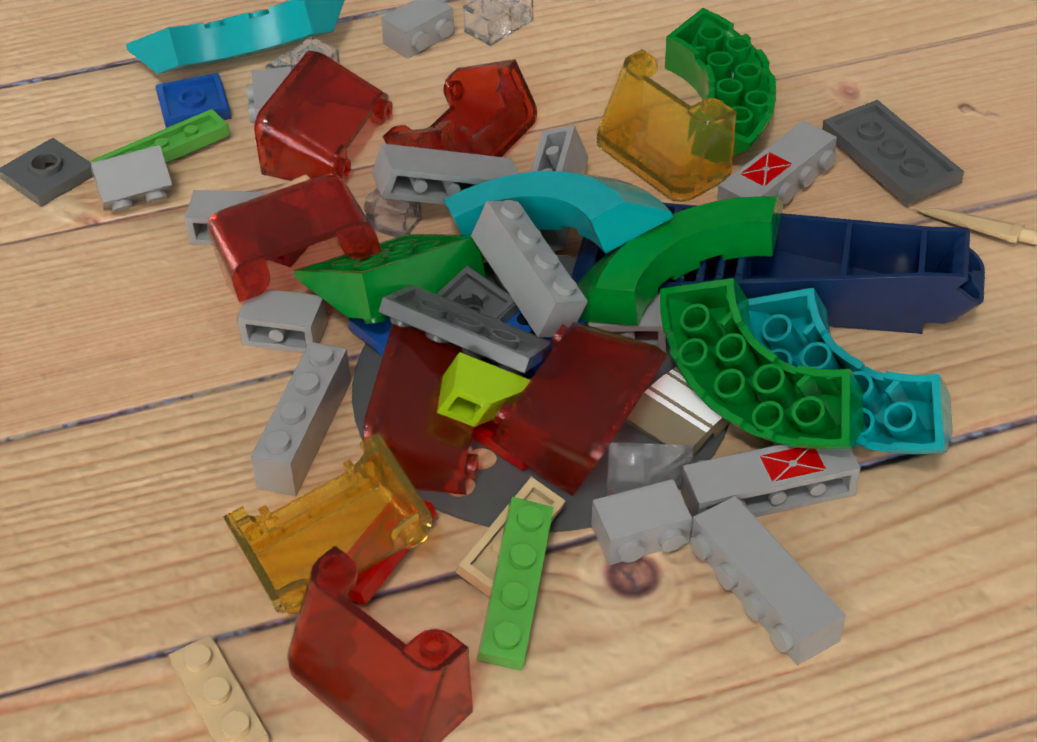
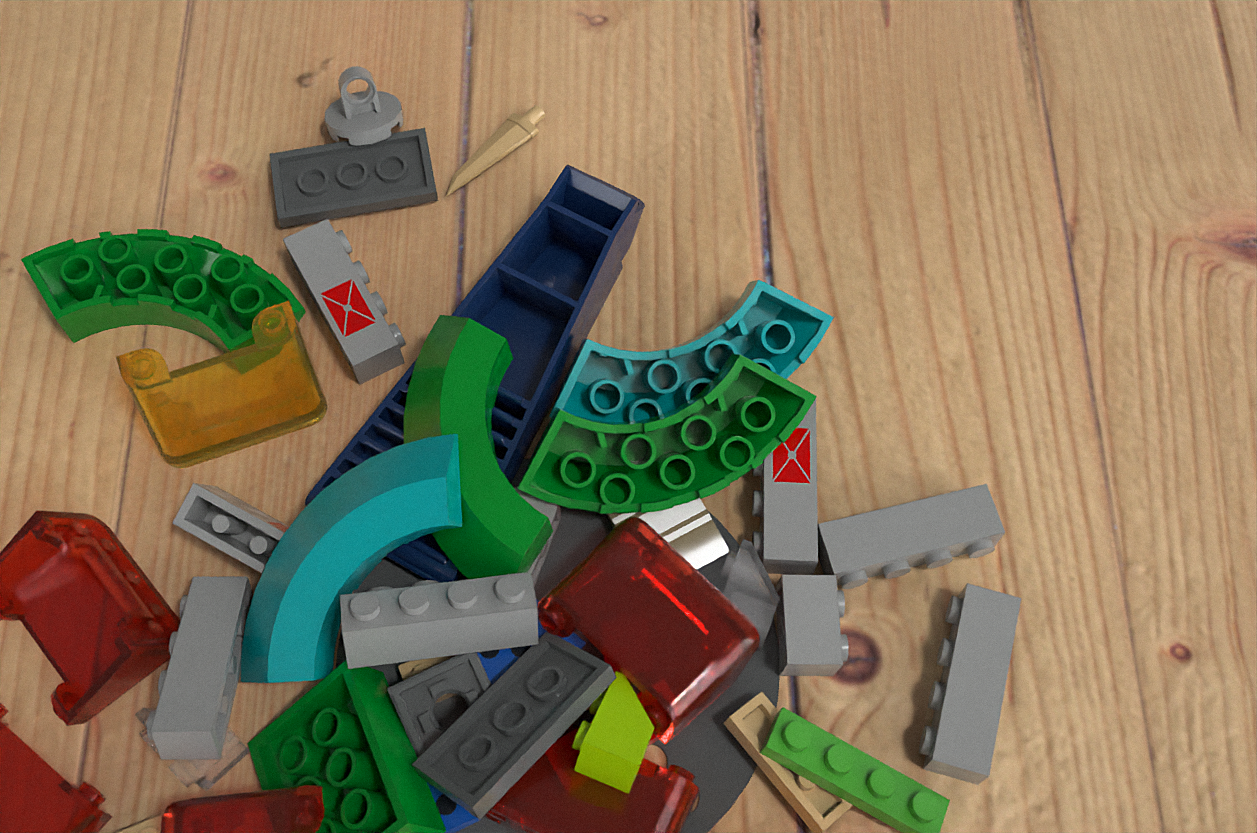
camera: 75 degrees left, 20 degrees up
(643, 656) = (971, 684): none -> light grey brick
(952, 133) = (363, 115): none -> light grey tile

